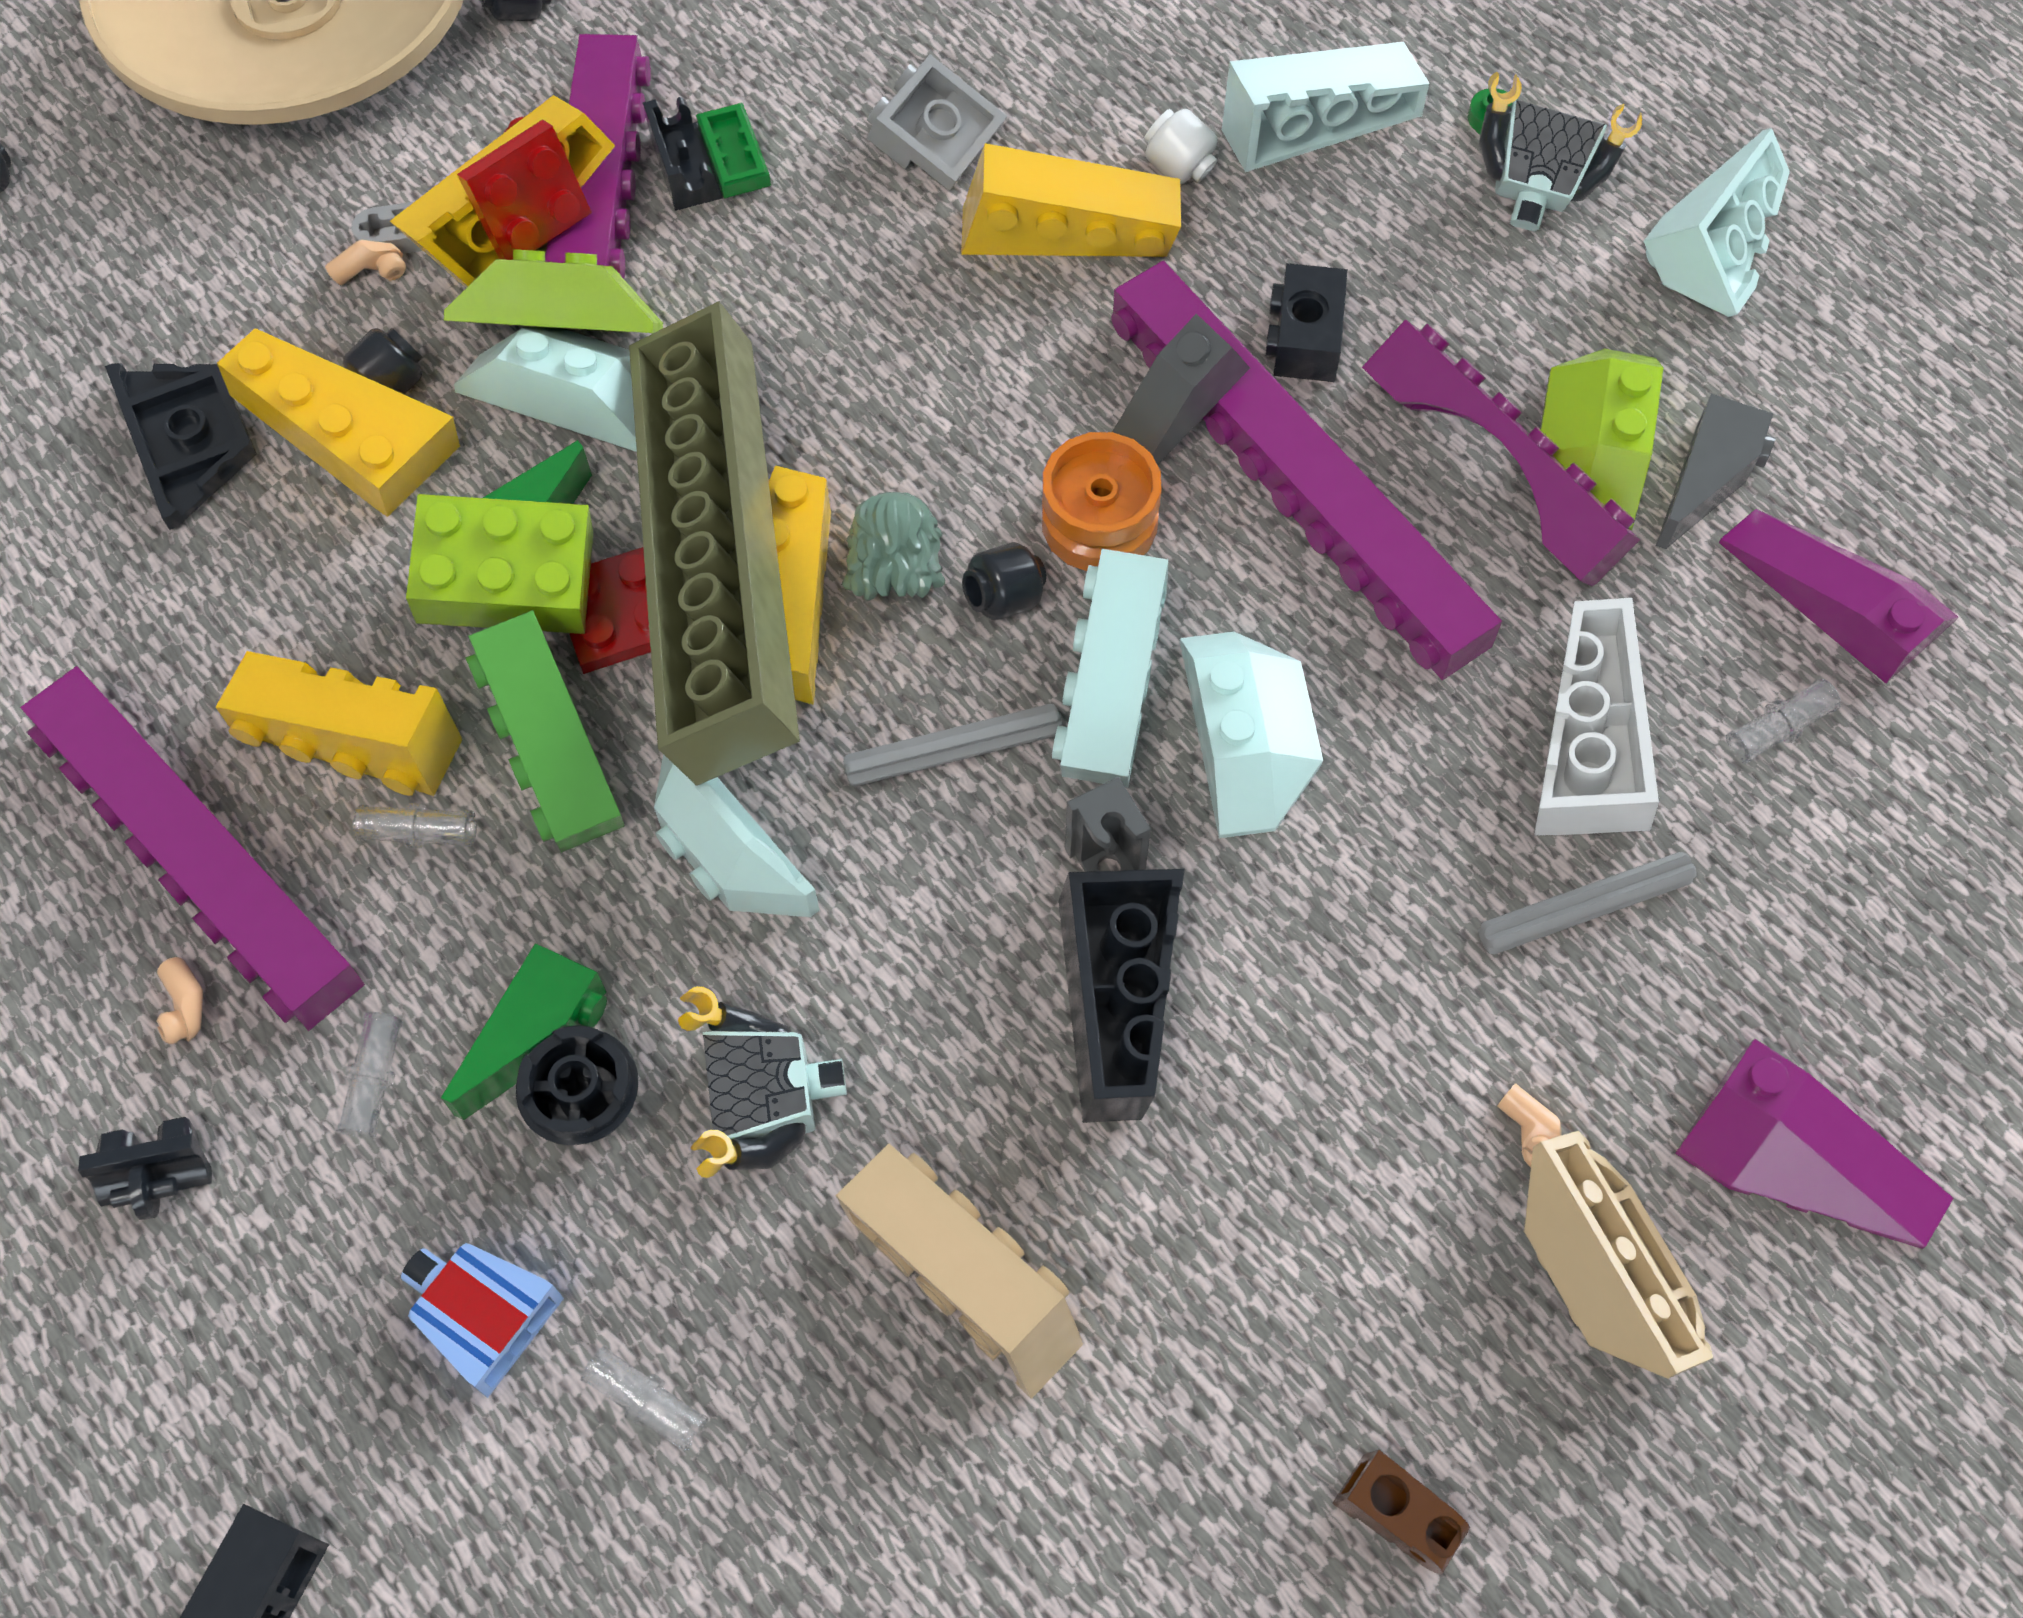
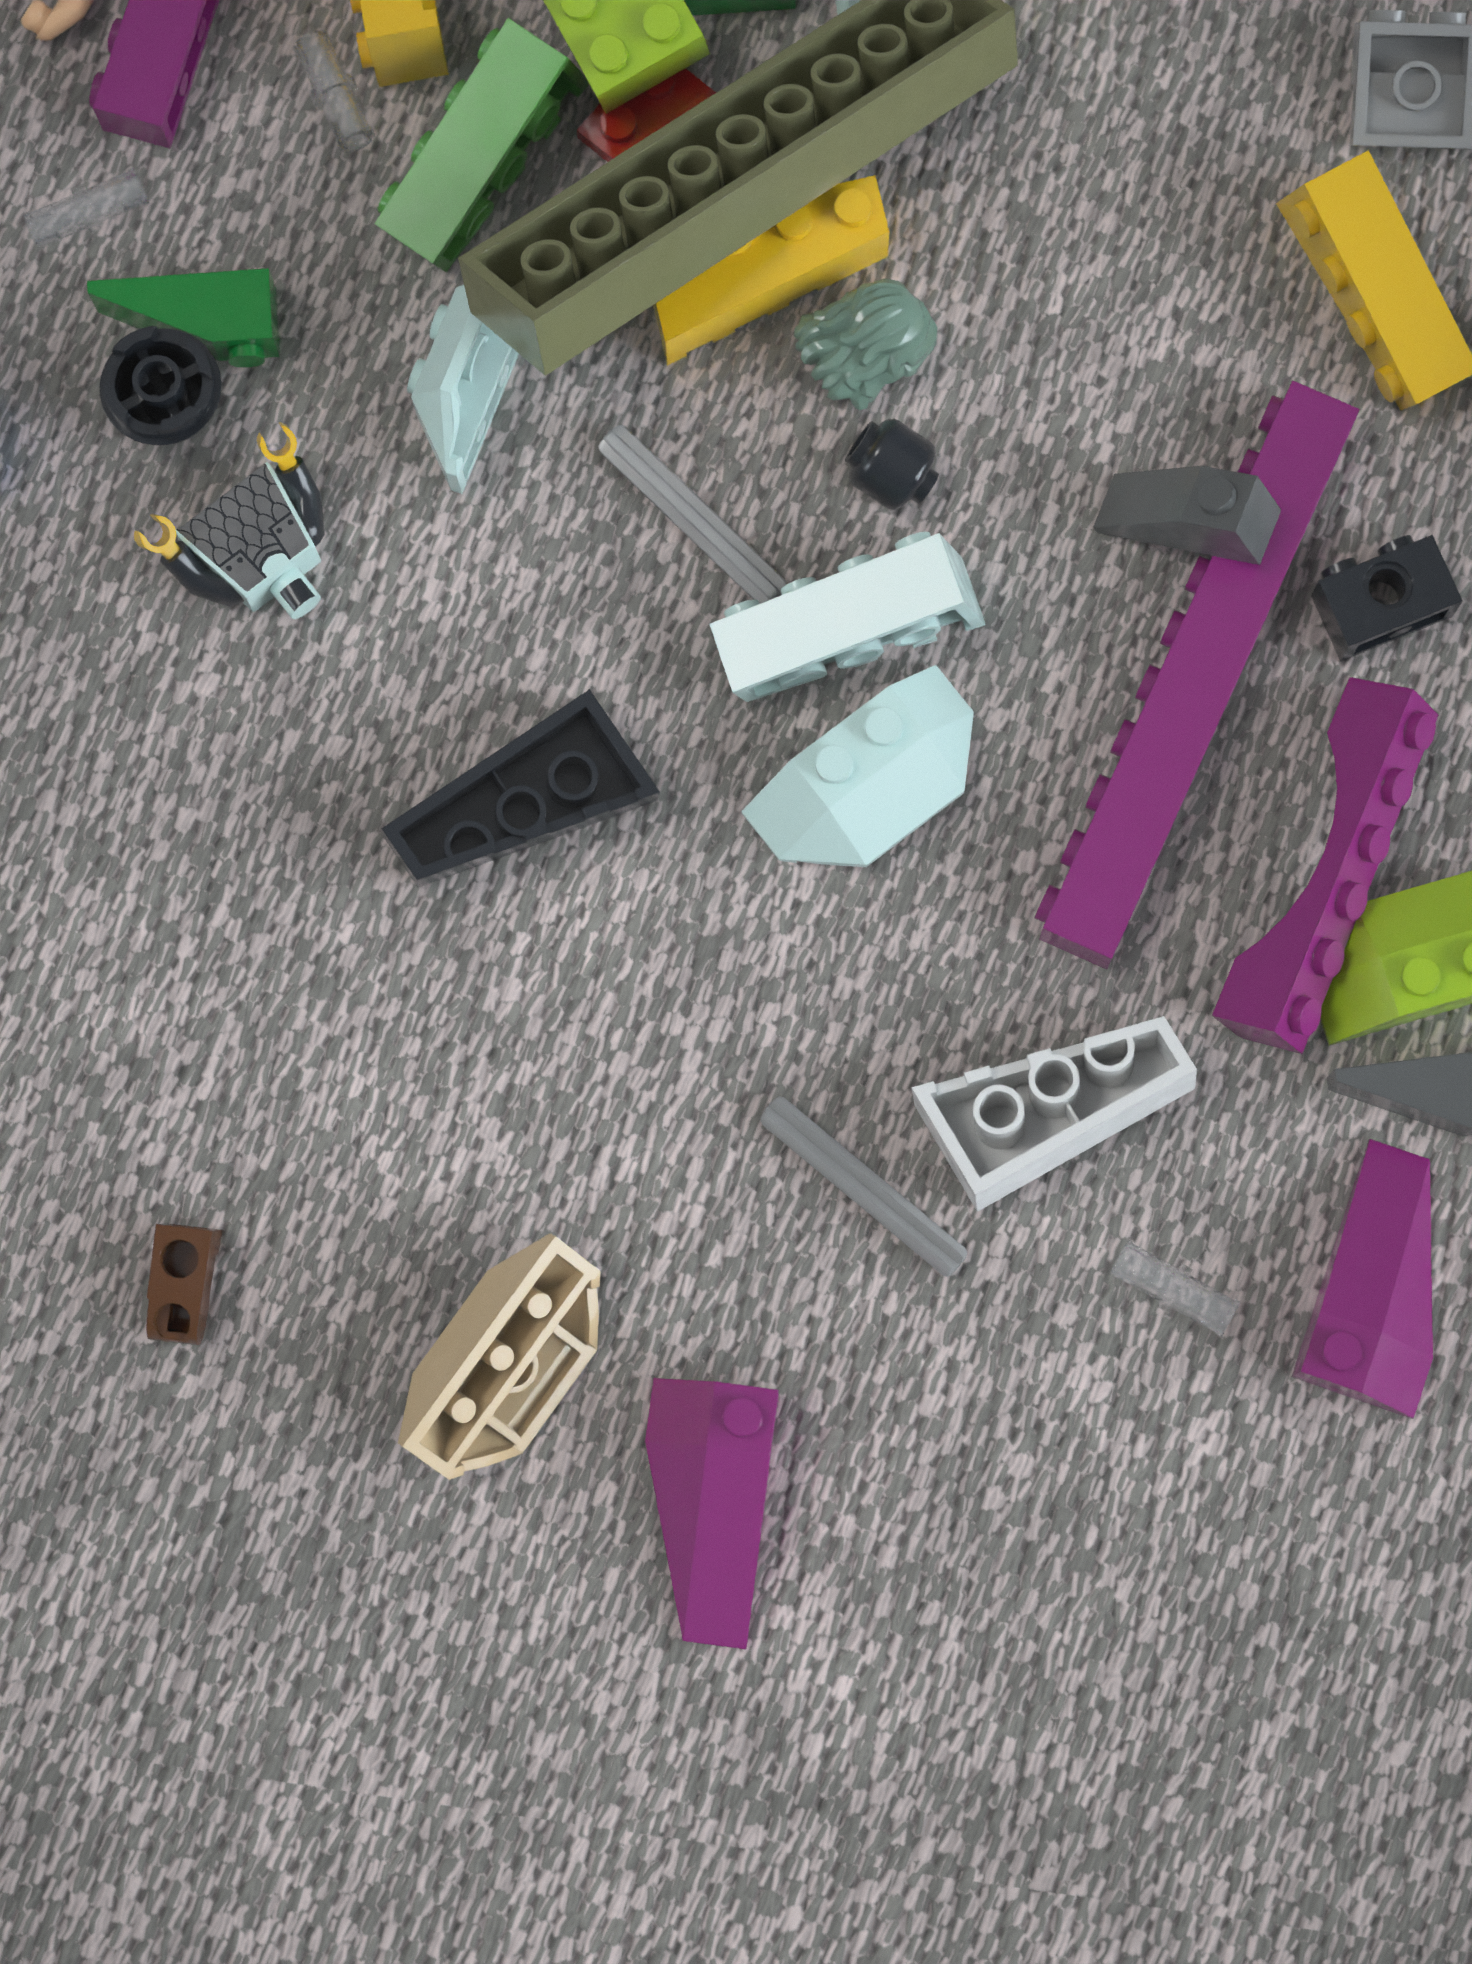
camera: 65 degrees right, 15 degrees up
(964, 1265) = (185, 802): tan wedge -> none
(1098, 497) = (1035, 469): orange wheel -> none
(1107, 826) = (666, 704): dark grey hinge -> none
(1535, 1120) = (608, 1241): light nougat arm -> none

